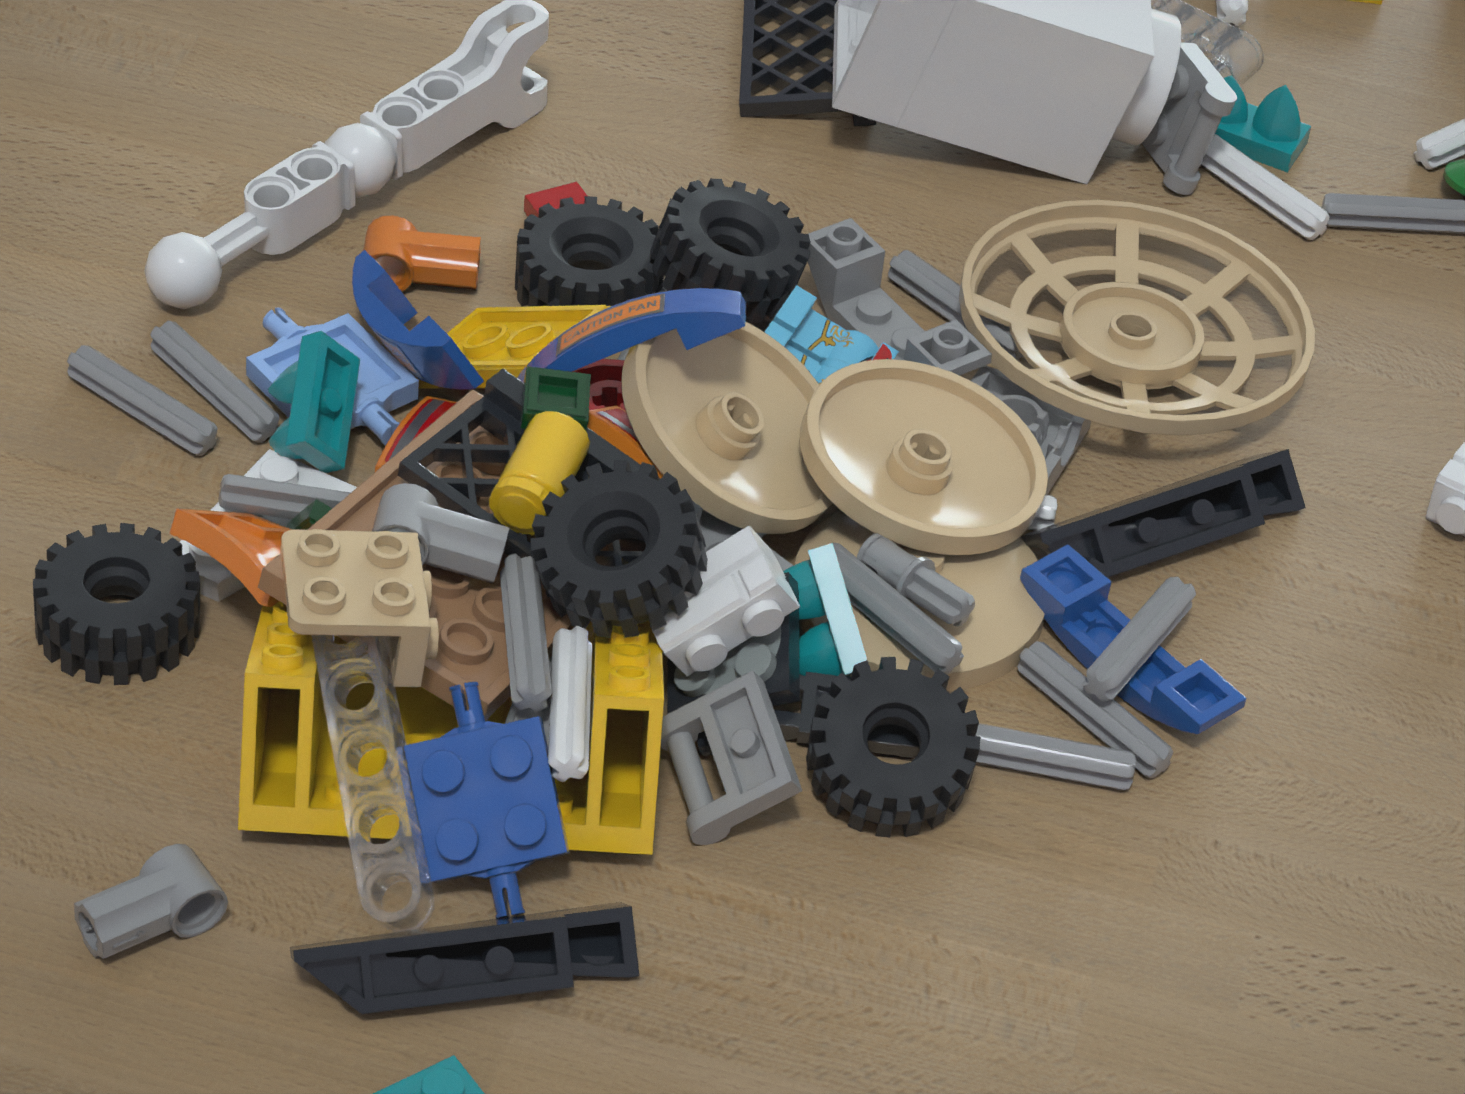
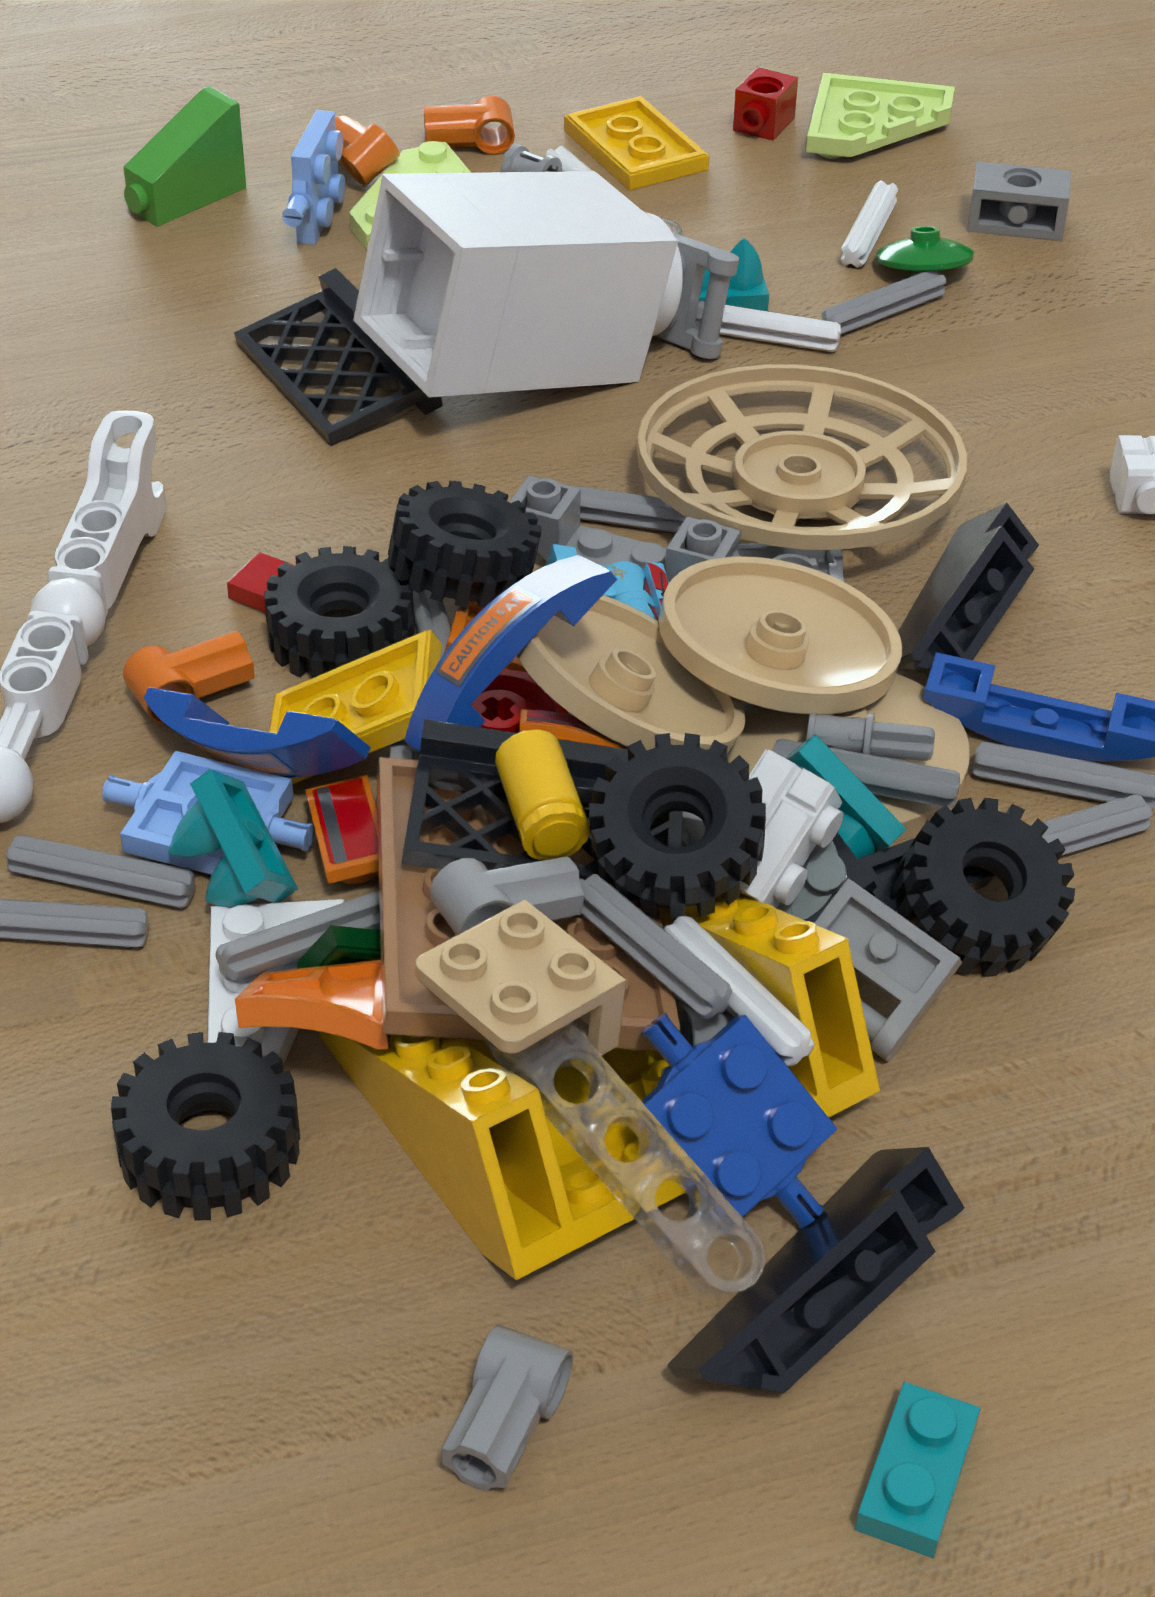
camera: 30 degrees left, 0 degrees up
(555, 392) = (492, 720): dark green tile -> none
(1139, 639) = (1057, 701): light grey axle -> none

